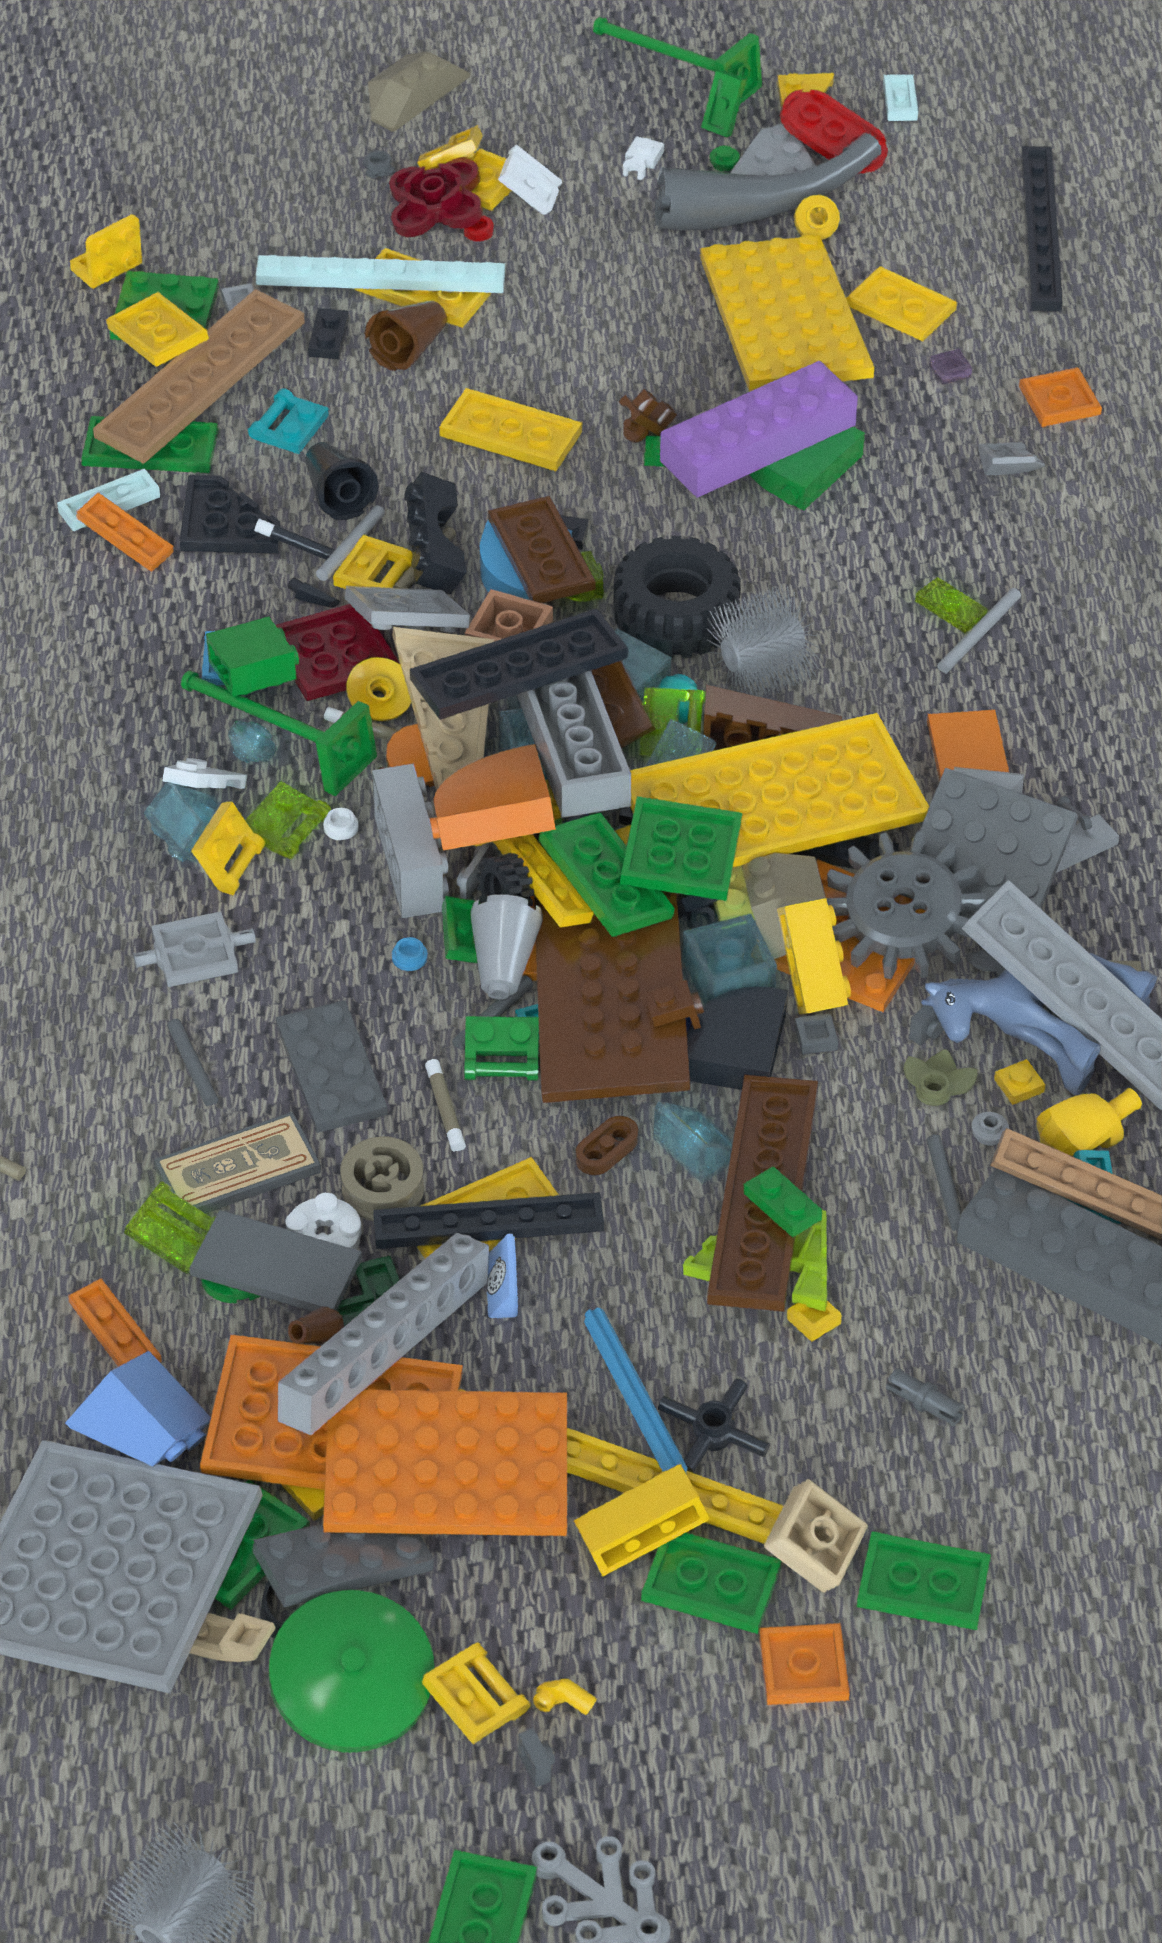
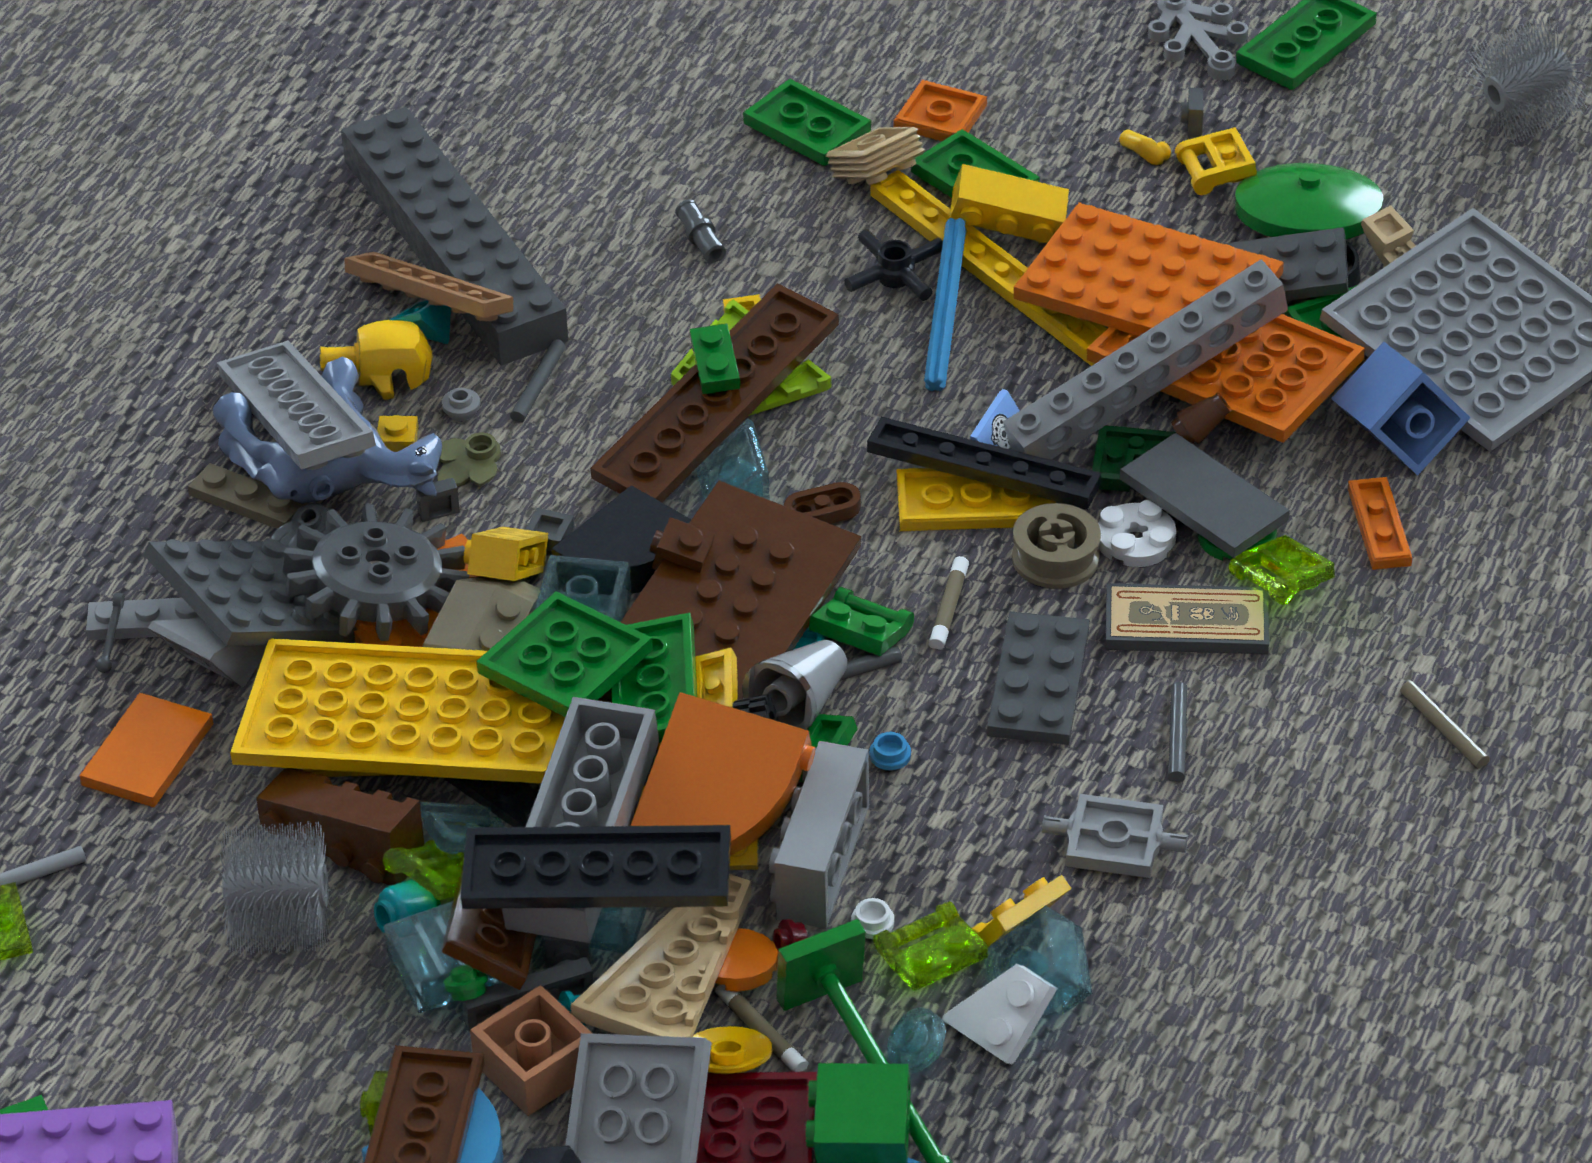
camera: 150 degrees left, 5 degrees down
(675, 567) = (315, 1059): black tyre -> none

